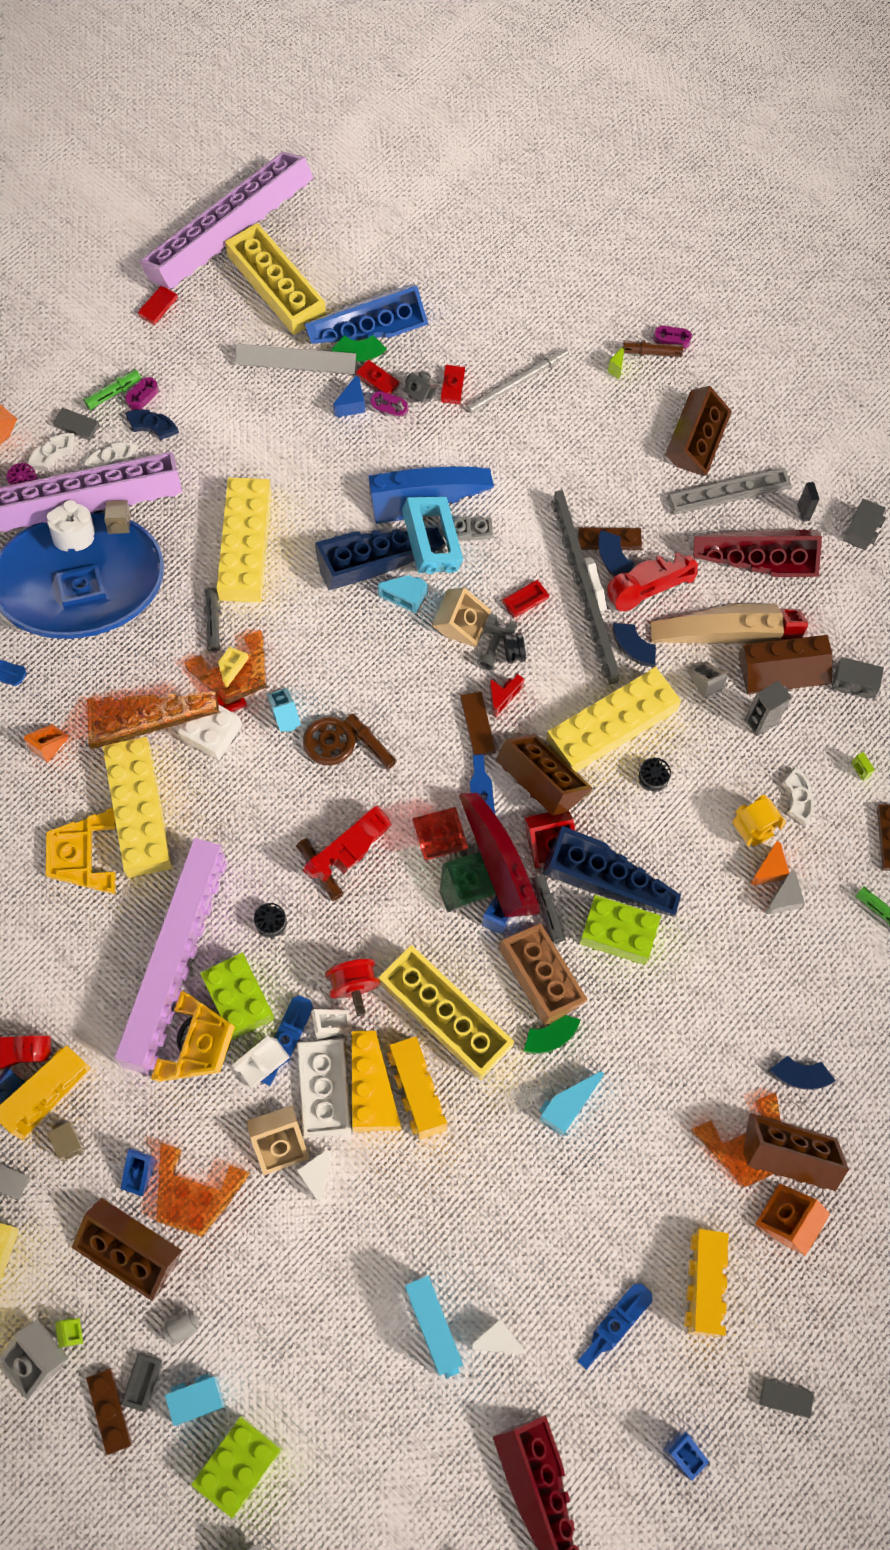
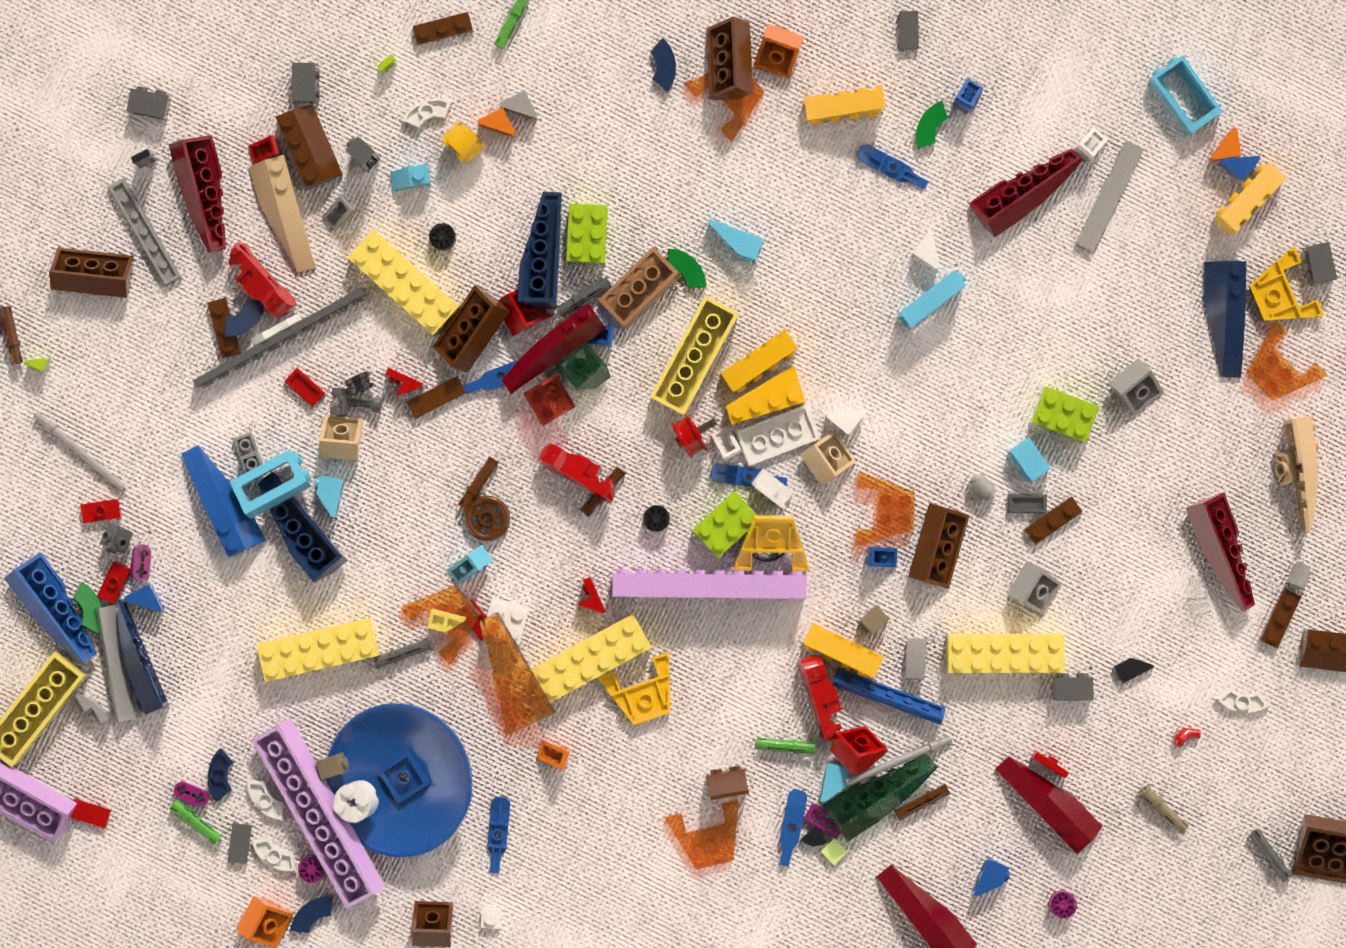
camera: 110 degrees left, 20 degrees up
(69, 1332) = (1009, 567): lime tile -> none
(199, 828) = (593, 603): none -> red slope
(266, 326) = (86, 702): none -> light grey slope
(289, 378) = (138, 664): none -> dark blue wedge
(633, 645) = (325, 282): dark blue tile -> none
(660, 1391) = (929, 123): none -> green tile
(728, 761) = (411, 177): none -> medium azure slope

